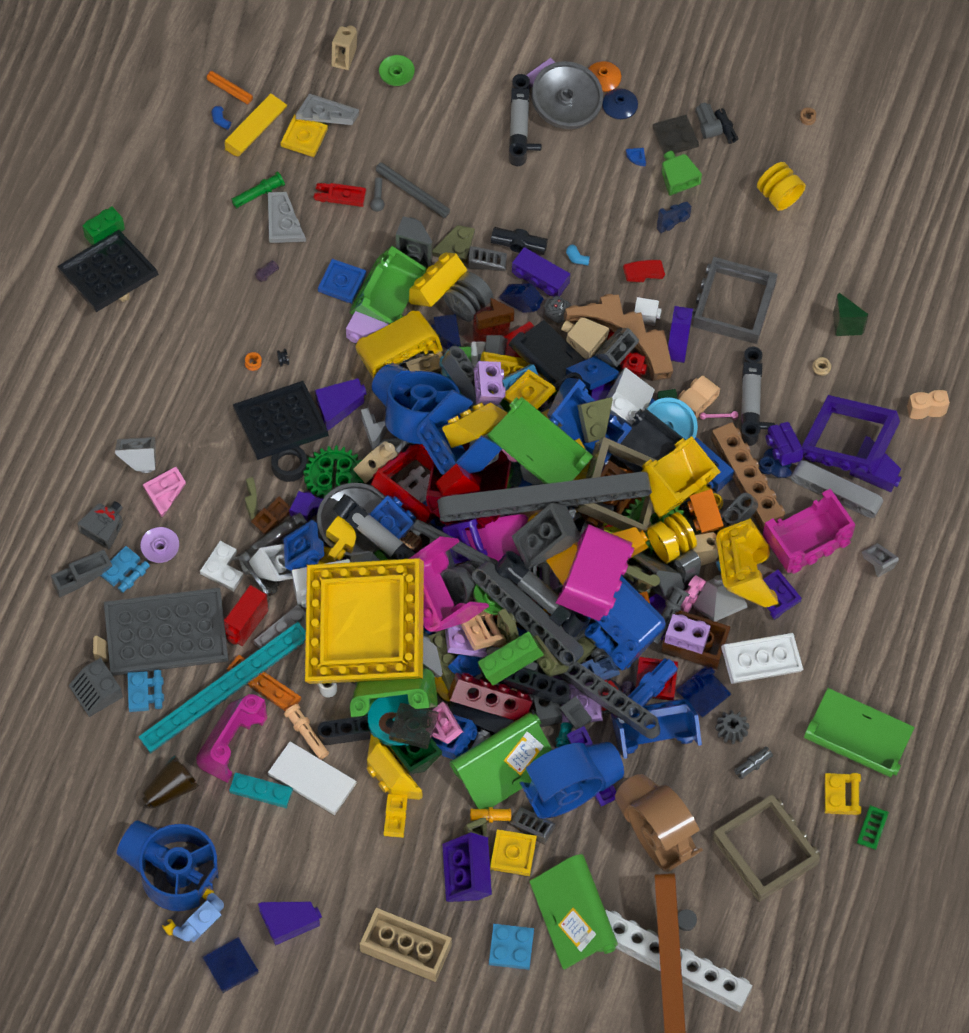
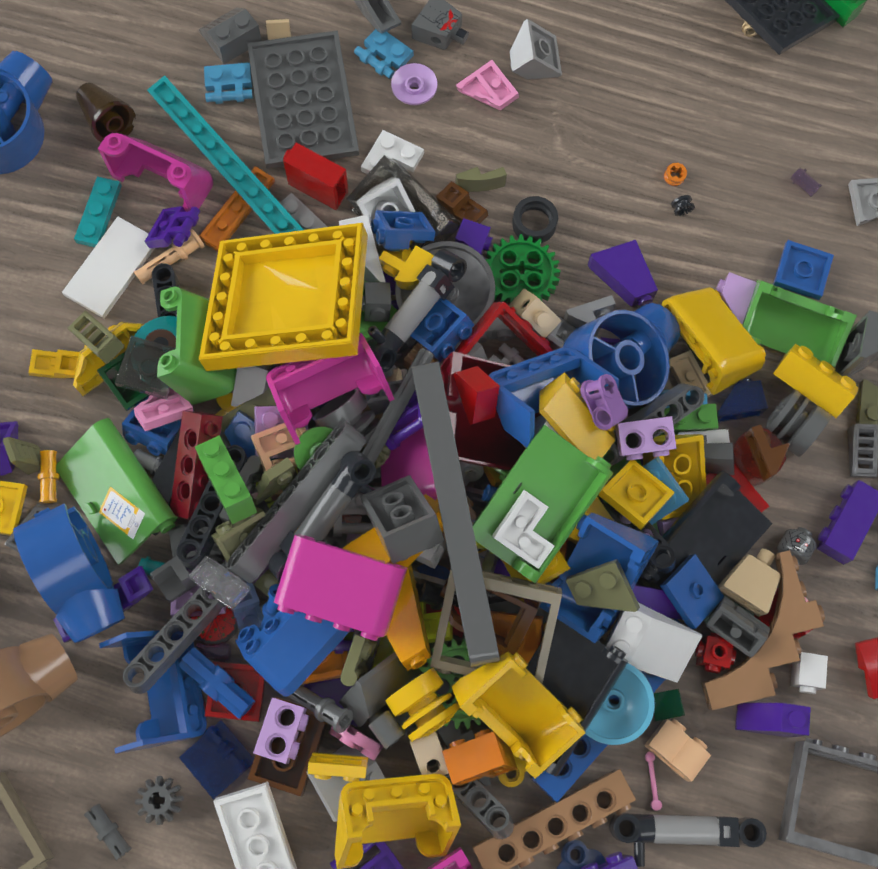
camera: 85 degrees right, 10 degrees up
(280, 420) = (589, 203): black plate -> none
(283, 731) = (169, 227): none -> dark purple plate
(392, 767) = (107, 347): none -> olive slope
(467, 401) = (605, 403): none -> medium lavender piece
(522, 297) = (808, 498): clear blue slope -> none
(558, 460) = (517, 530): none -> white plate
(583, 669) = (219, 582): none -> clear slope
(711, 598) = (345, 766): none -> yellow plate

